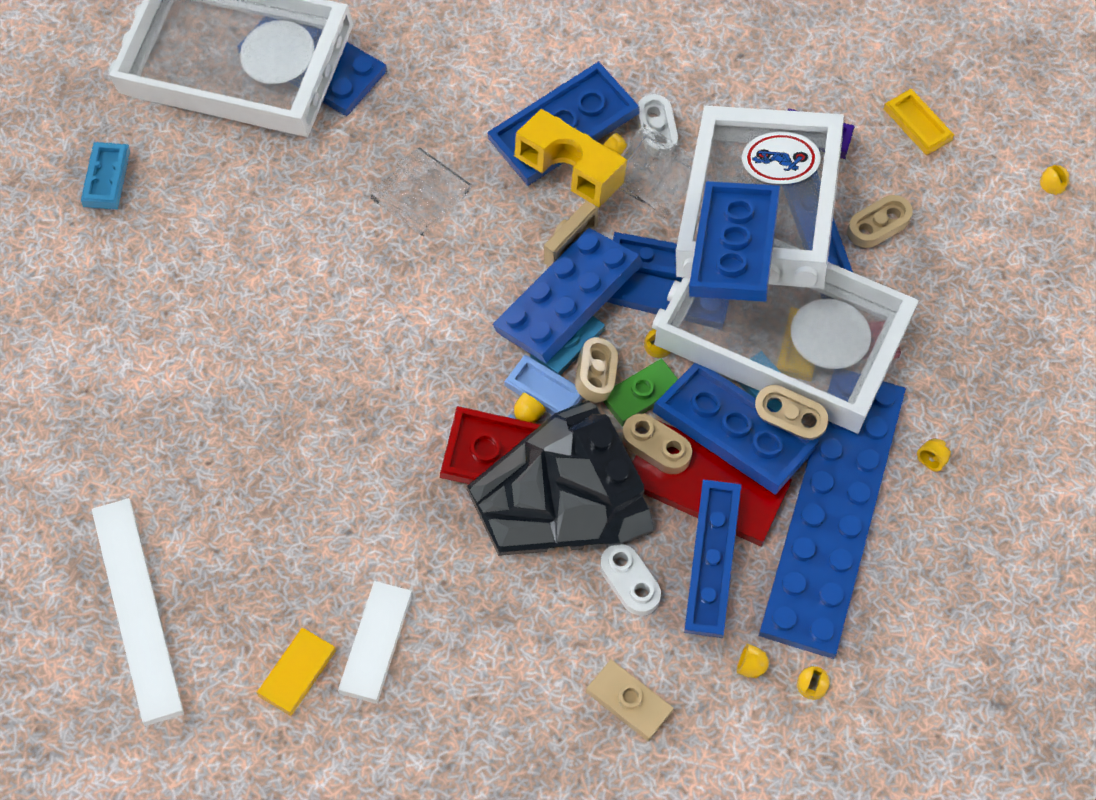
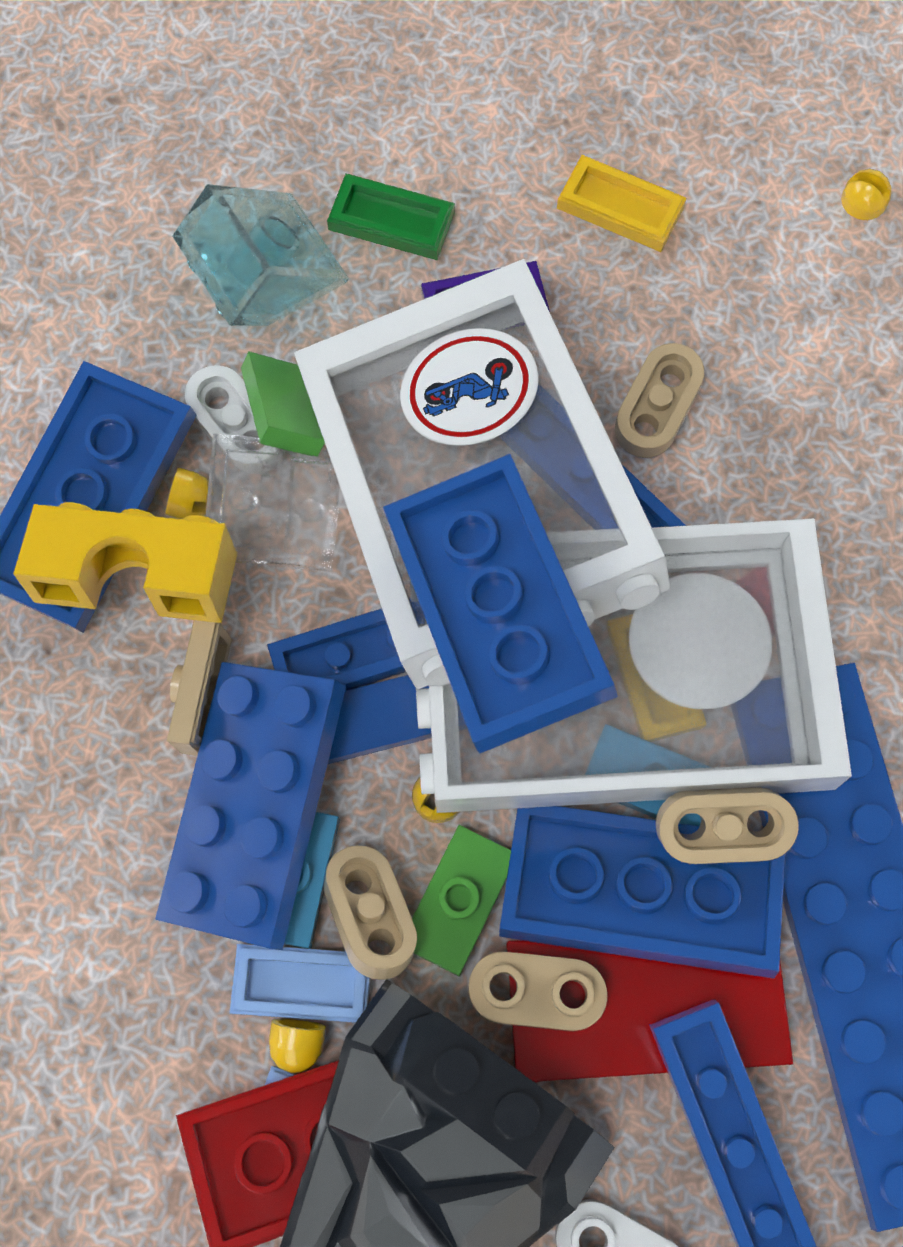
camera: 25 degrees left, 10 degrees up
(683, 127) = (281, 405): none -> bright green tile
(712, 55) = (256, 254): none -> clear light blue slope
(793, 71) = (391, 216): none -> green tile

